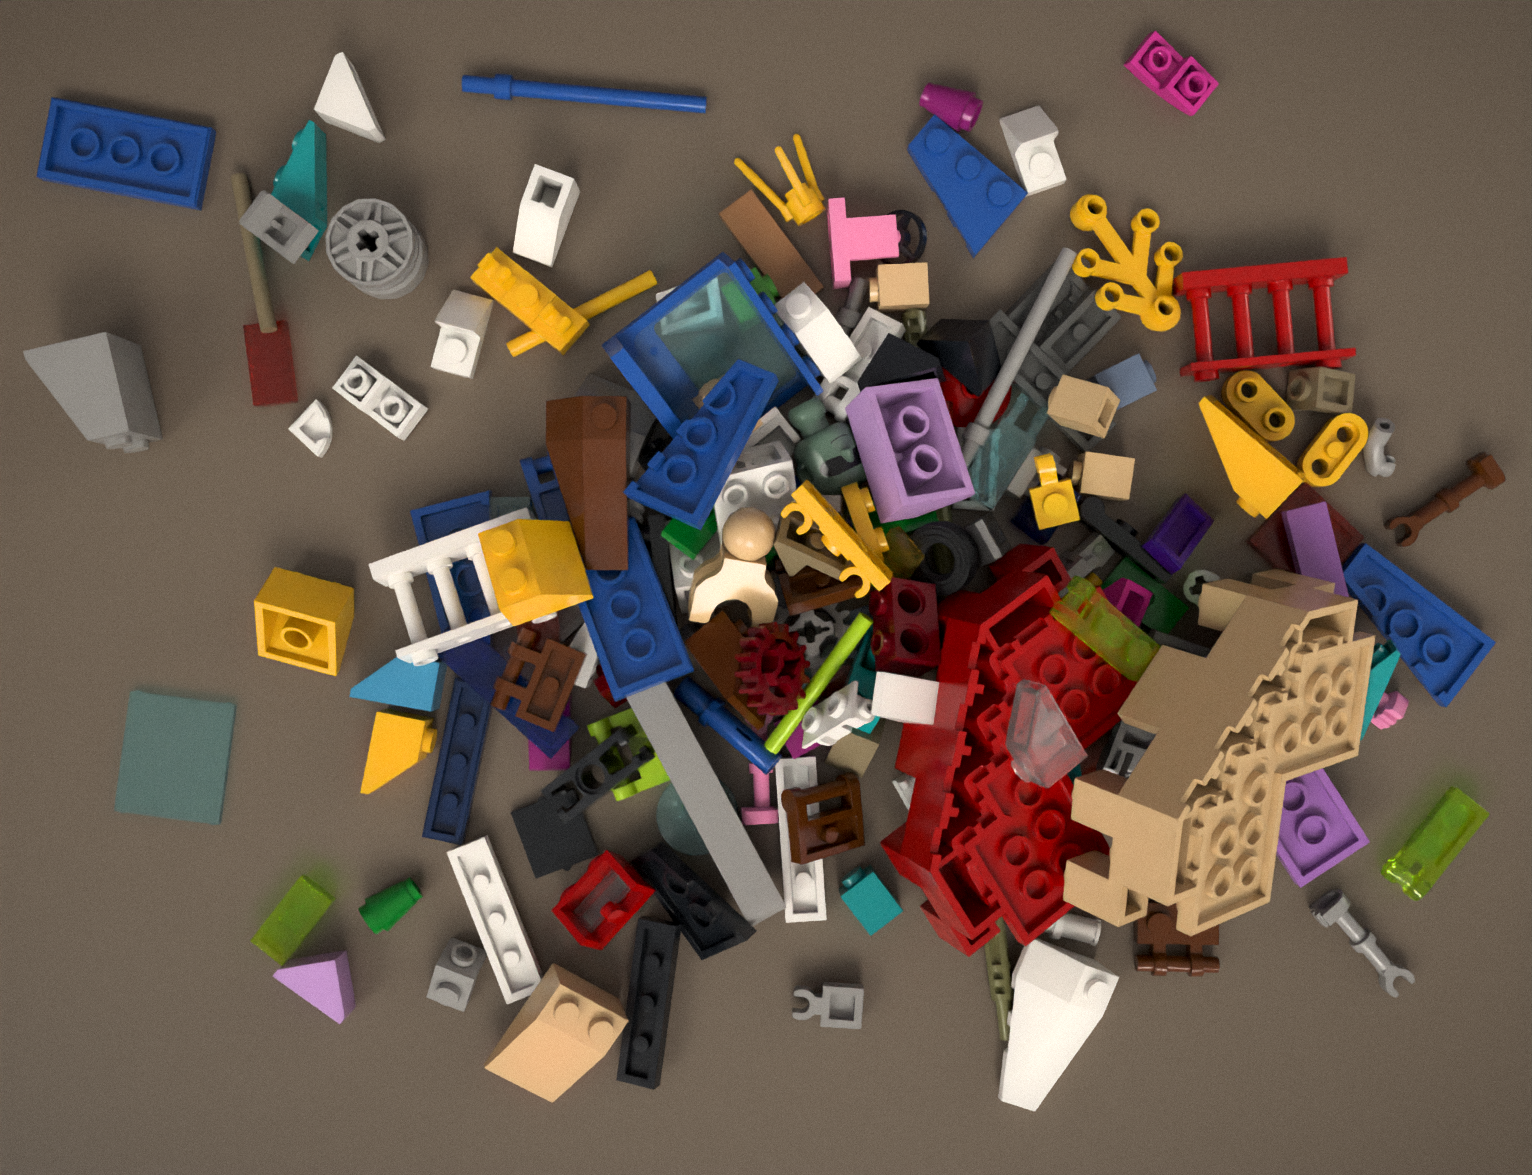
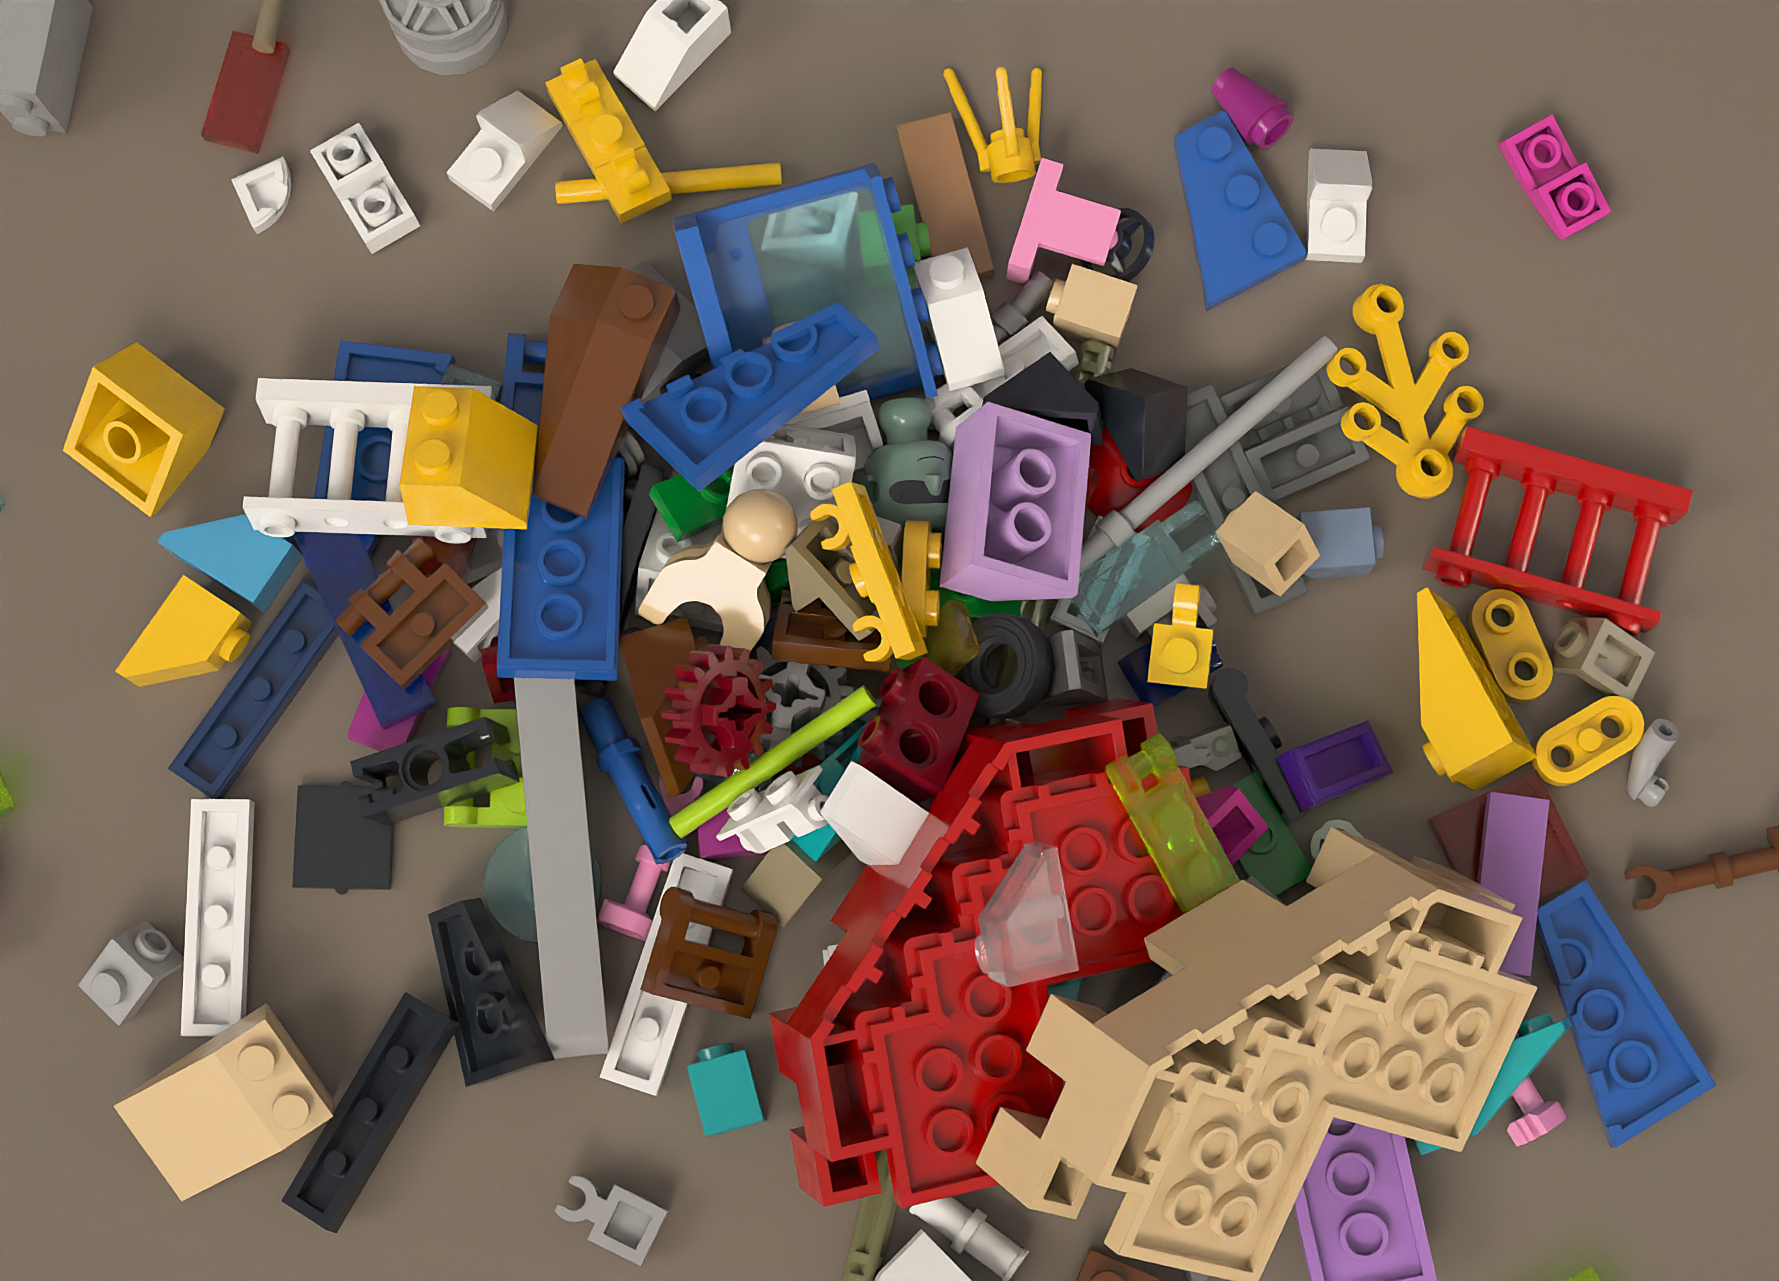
camera: 20 degrees right, 10 degrees down
(390, 905) = (86, 841): green cone -> none
(602, 900) = (368, 947): red window -> none
(1102, 476) = (1263, 651): tan brick -> none

